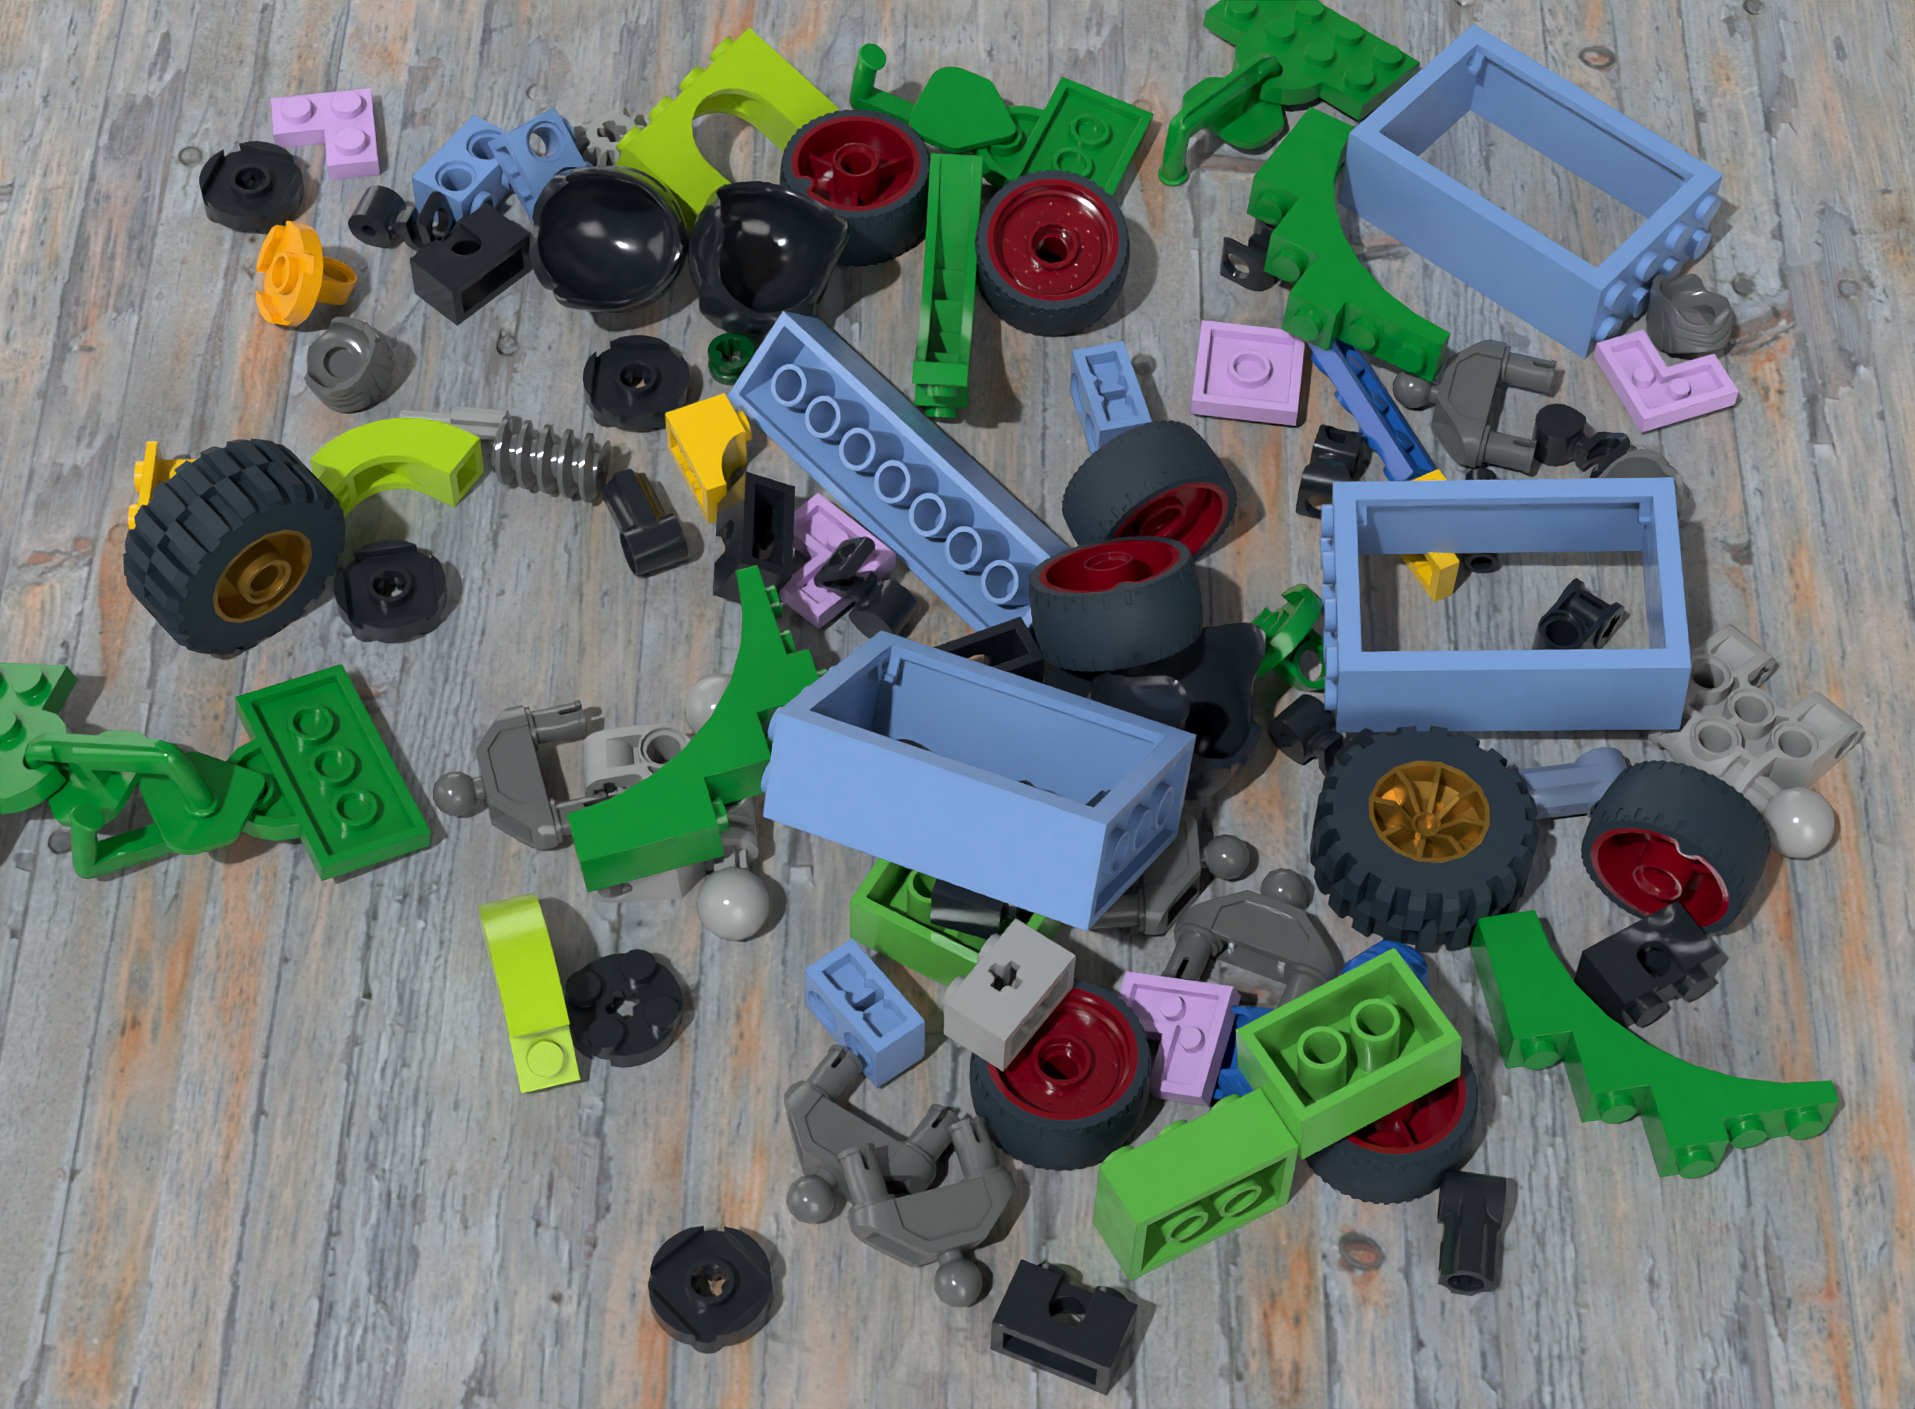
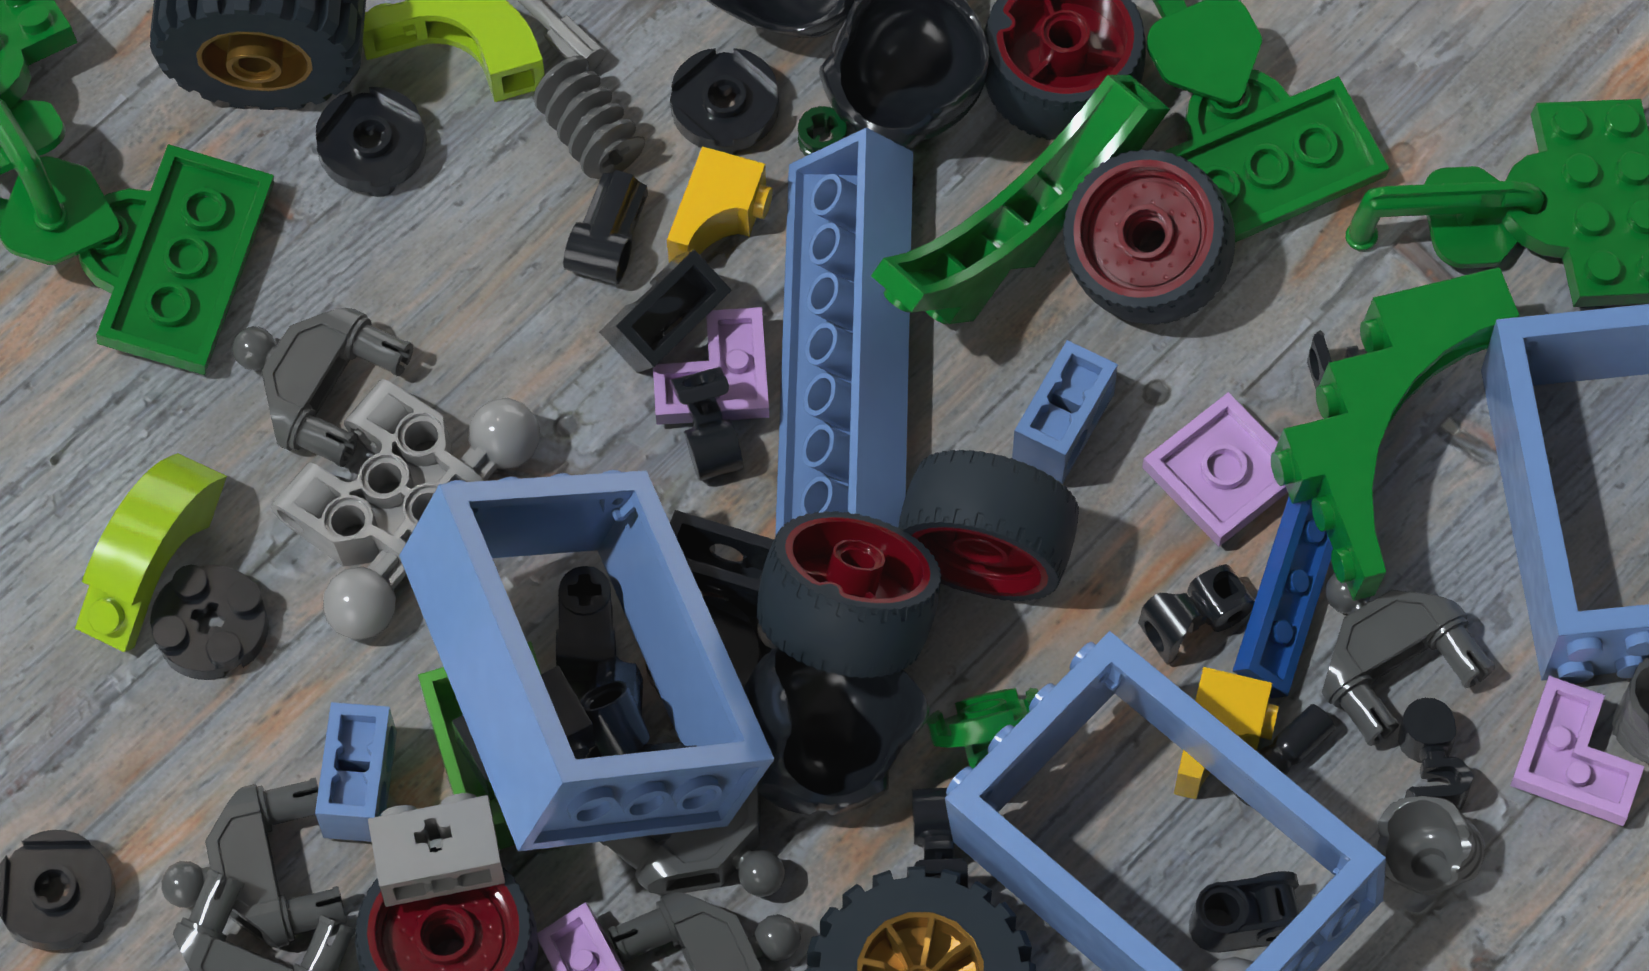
camera: 45 degrees right, 10 degrees up
(680, 808) = (363, 496): green arch -> none

